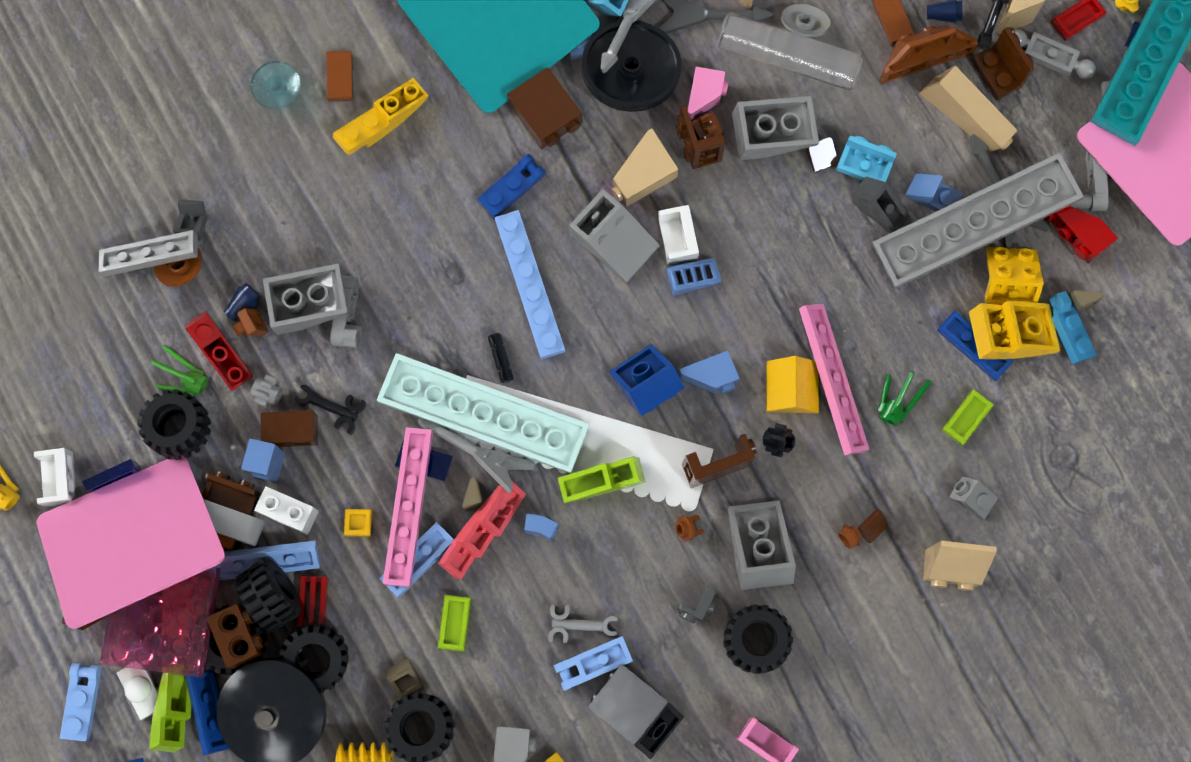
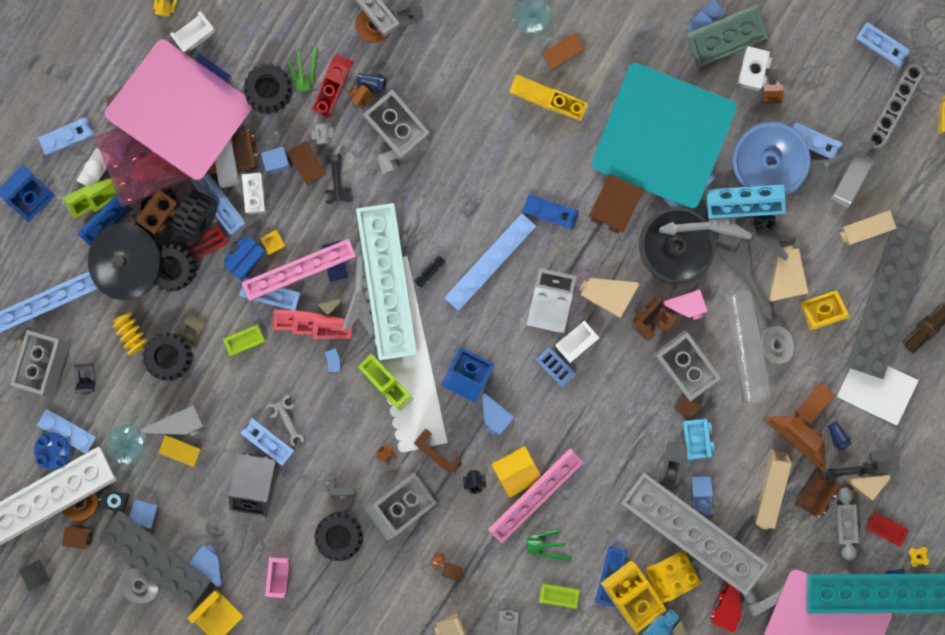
camera: 60 degrees right, 10 degrees up
(356, 566) = (244, 258): none -> blue brick

